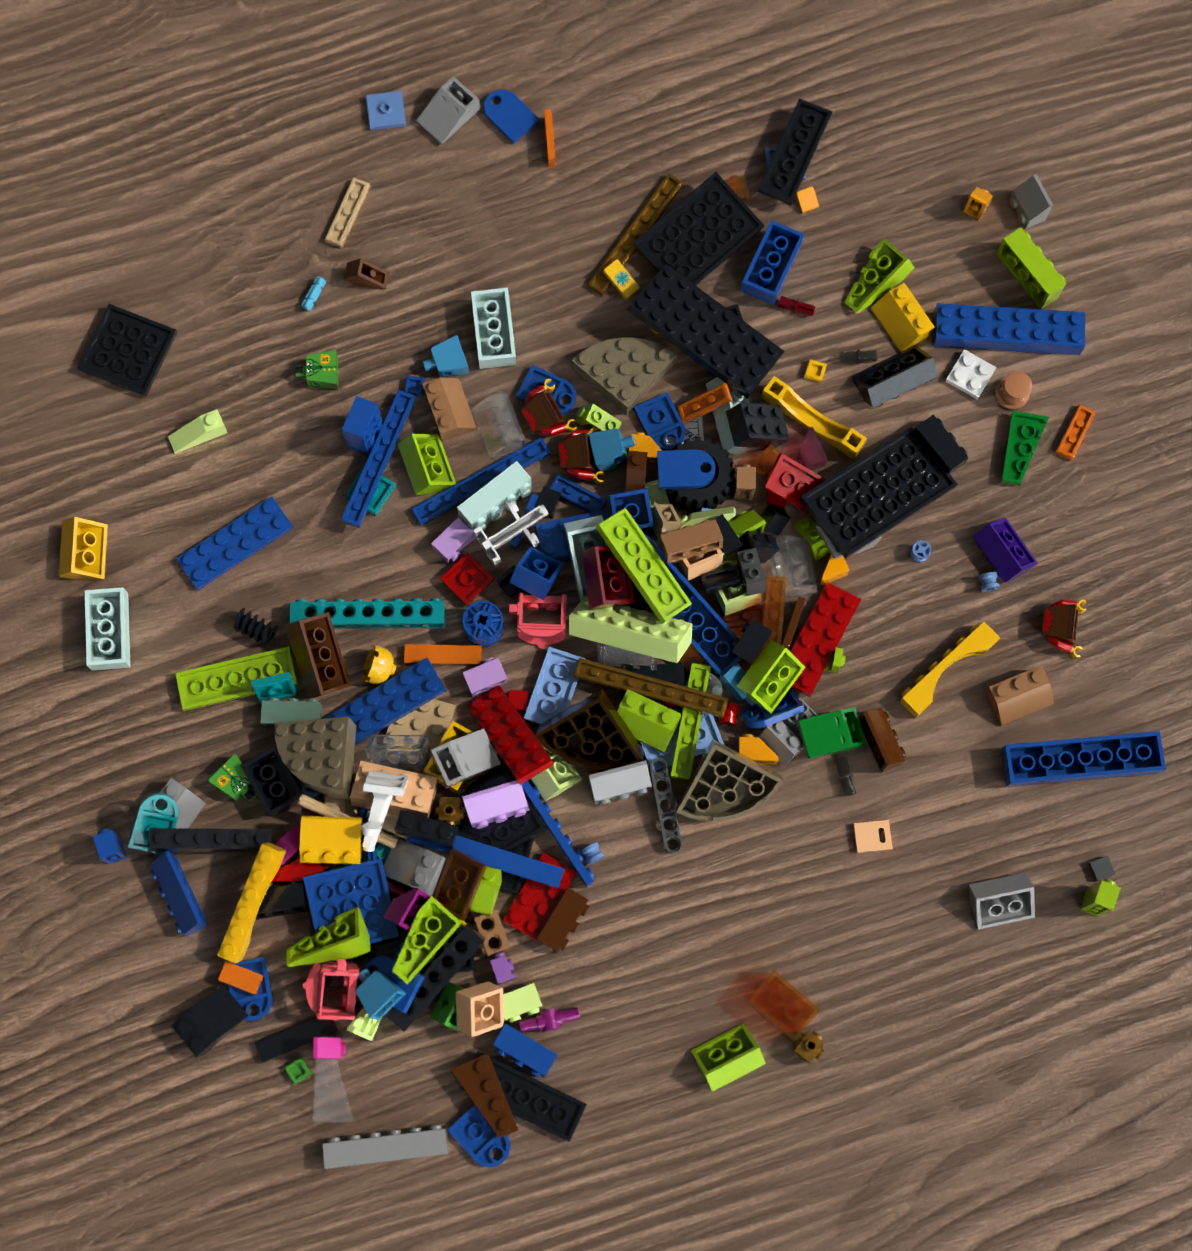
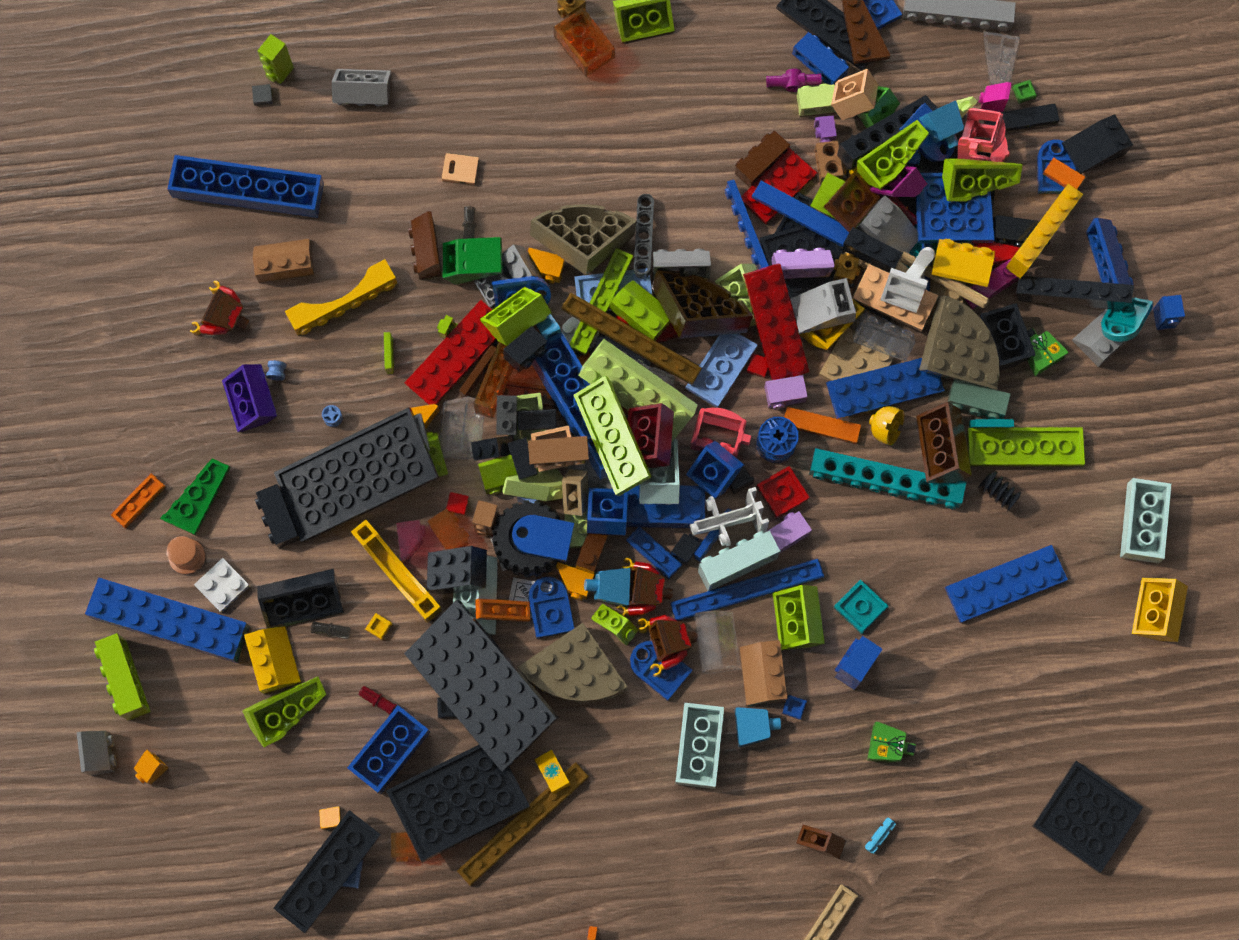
camera: 165 degrees left, 0 degrees up
(198, 431) = (1026, 707): yellowish green slope -> none
(378, 459) = (846, 633): blue plate -> none
(592, 853) = (721, 209): medium blue wheel -> none
(730, 715) = (556, 307): red wheel -> none
(775, 519) = (466, 480): black panel -> none
(791, 480) = (436, 504): red plate -> none
(885, 624) = (388, 353): none -> lime tile

